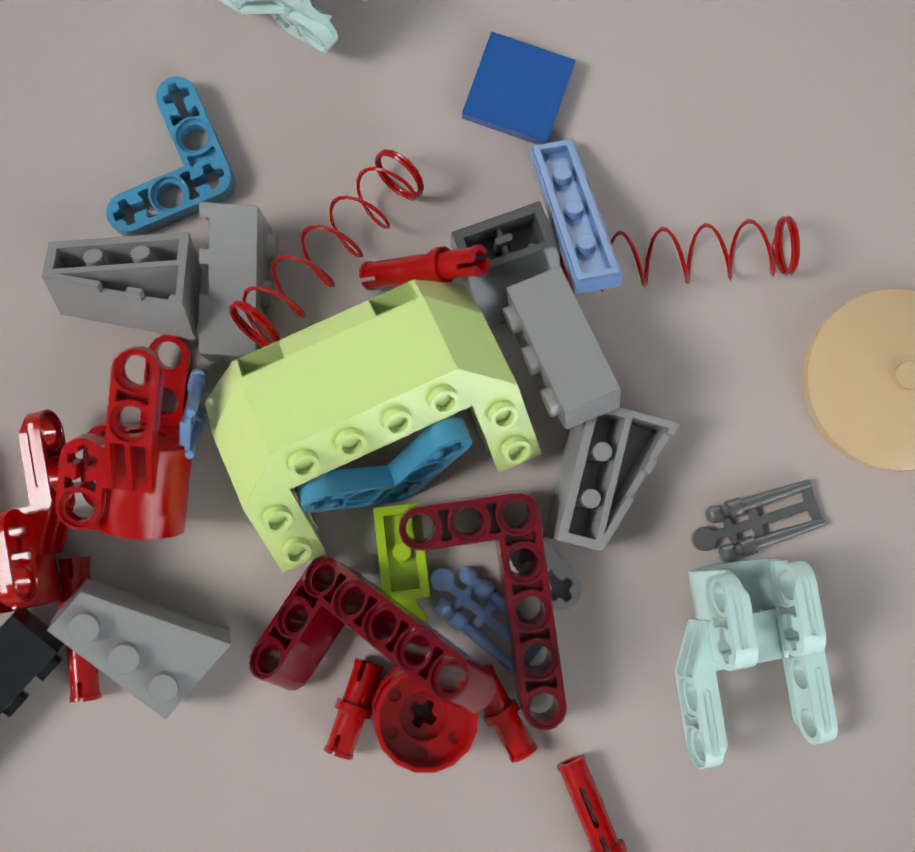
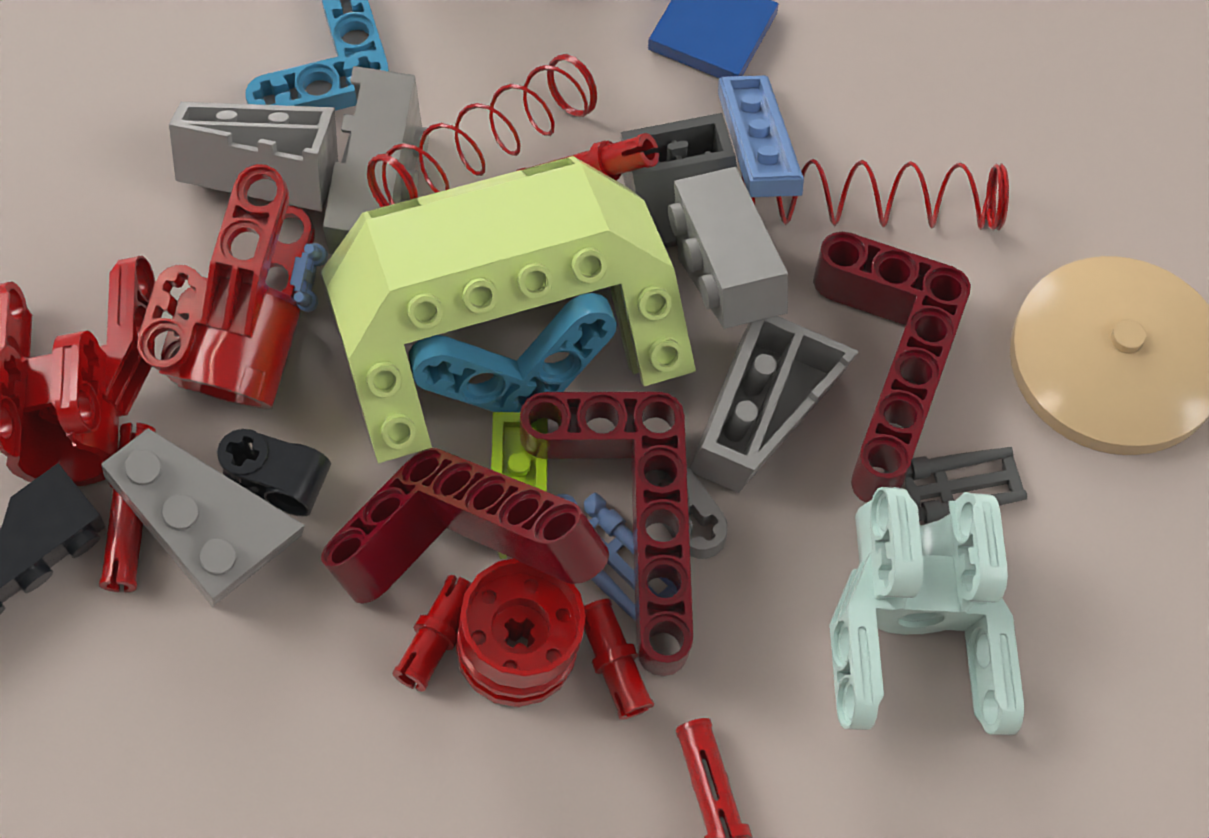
camera: 10 degrees right, 20 degrees down
(203, 585) = (274, 469): none -> black piece
(720, 412) = (930, 303): none -> dark red beam

